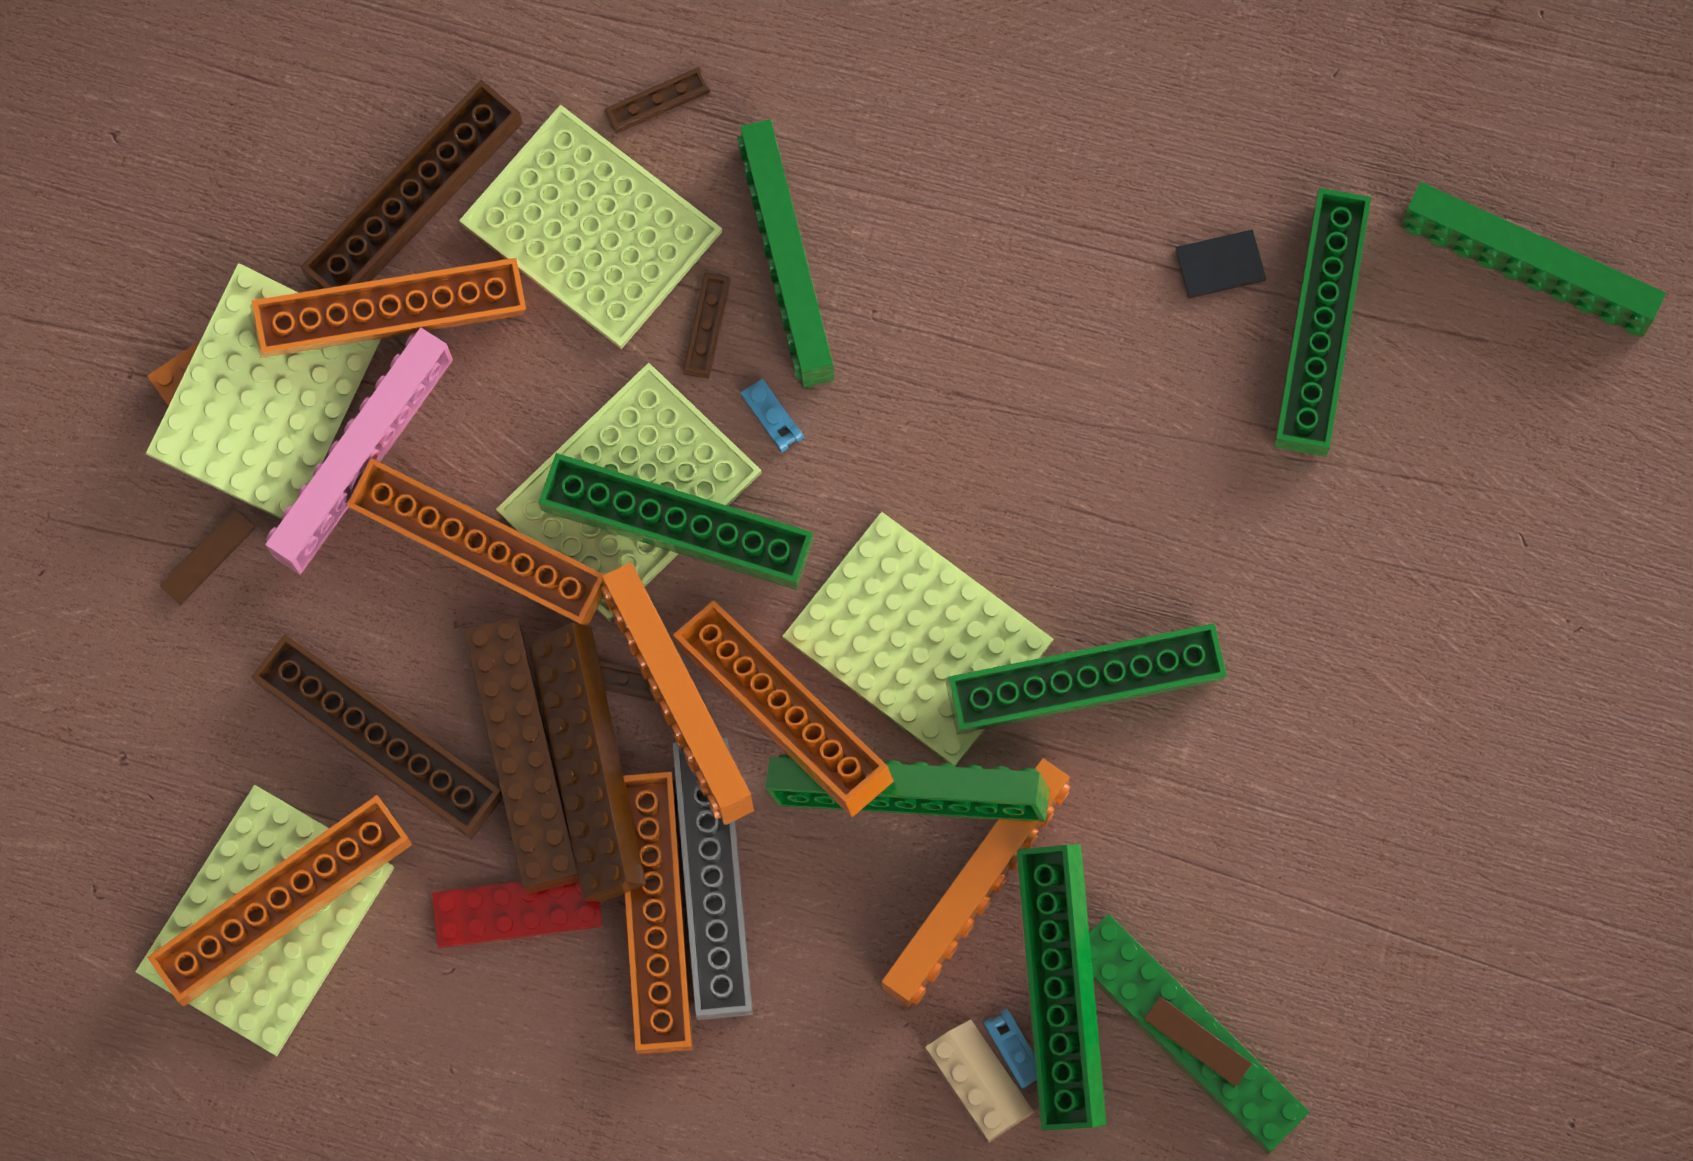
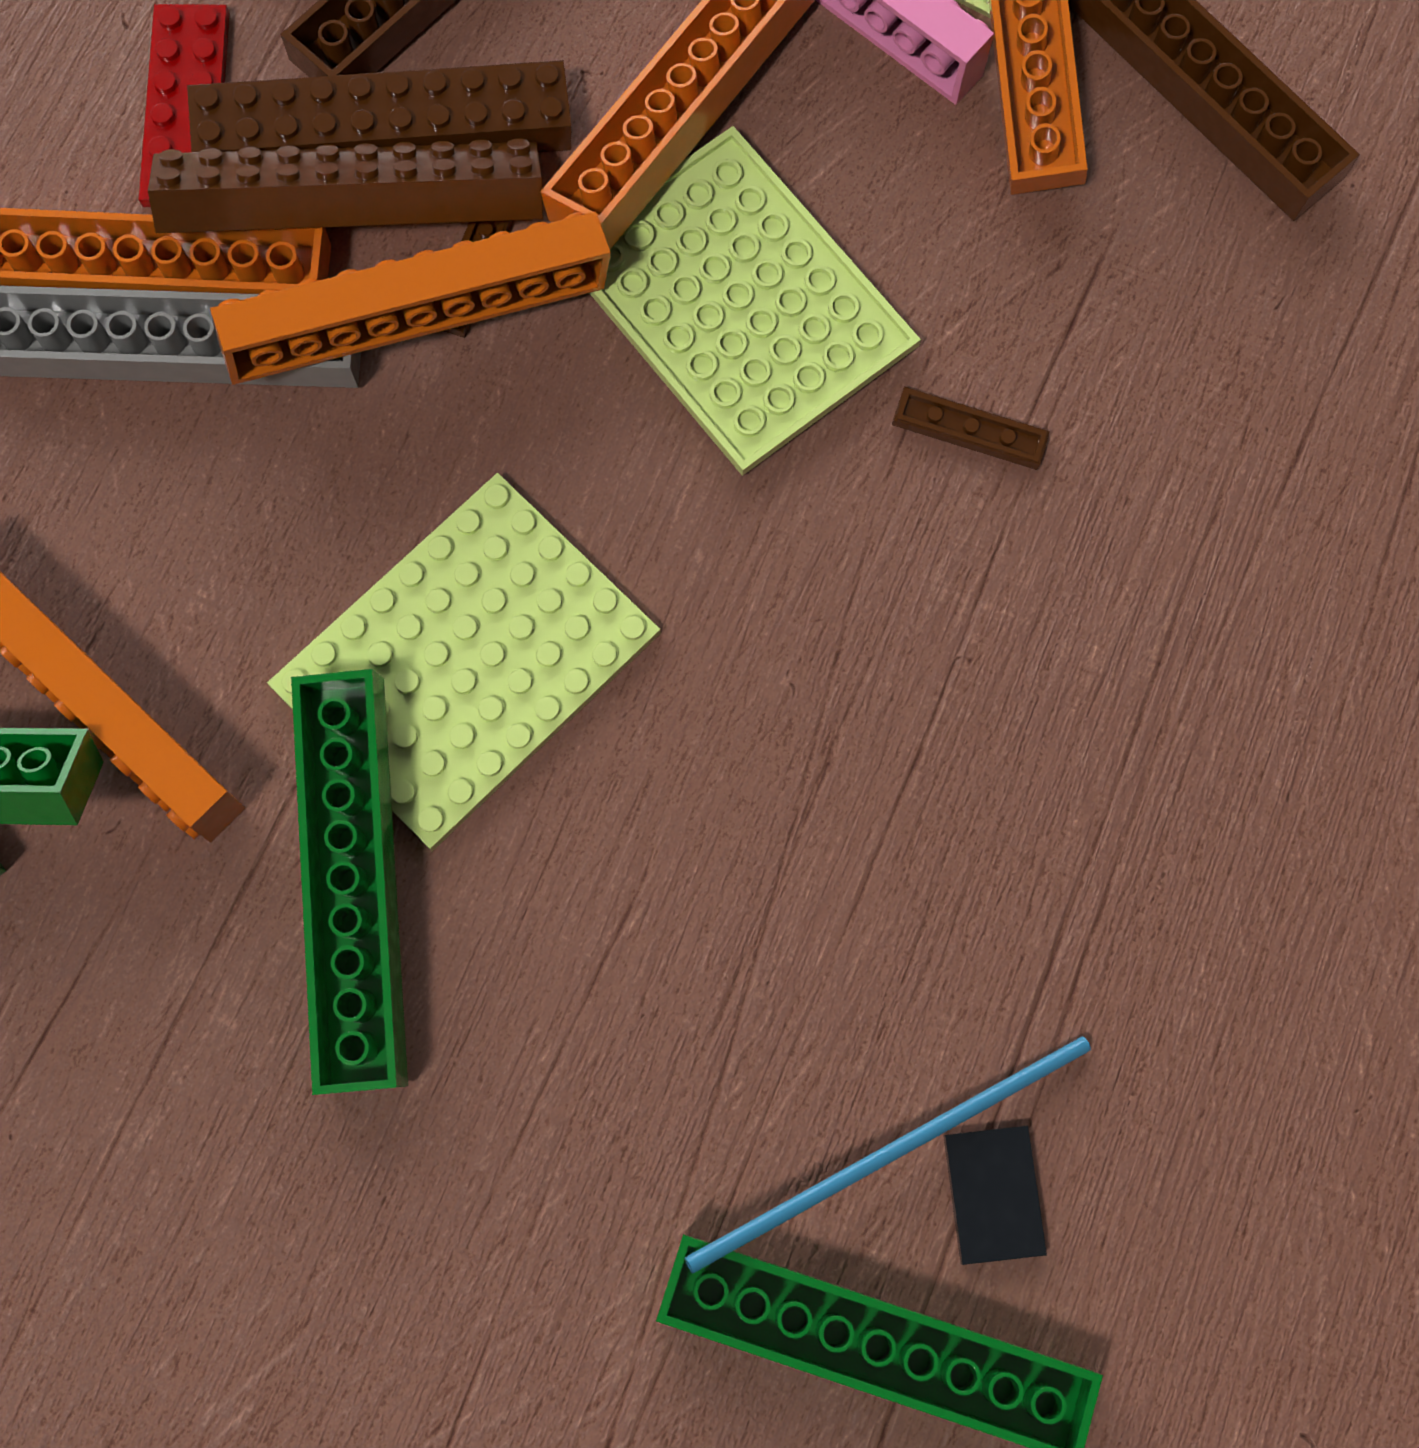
camera: 90 degrees right, 0 degrees up
(591, 226) = (1131, 291): yellowish green plate -> none
(657, 100) = (1318, 401): reddish brown tile -> none
(676, 521) = (672, 340): green brick -> none
(771, 415) = (826, 498): dark azure plate -> none
(783, 708) = (356, 434): orange brick -> none
(786, 252) = (1067, 536): green brick -> none
(926, 791) = (211, 598): green brick -> none
(1207, 324) = (885, 1155): none -> dark azure piece

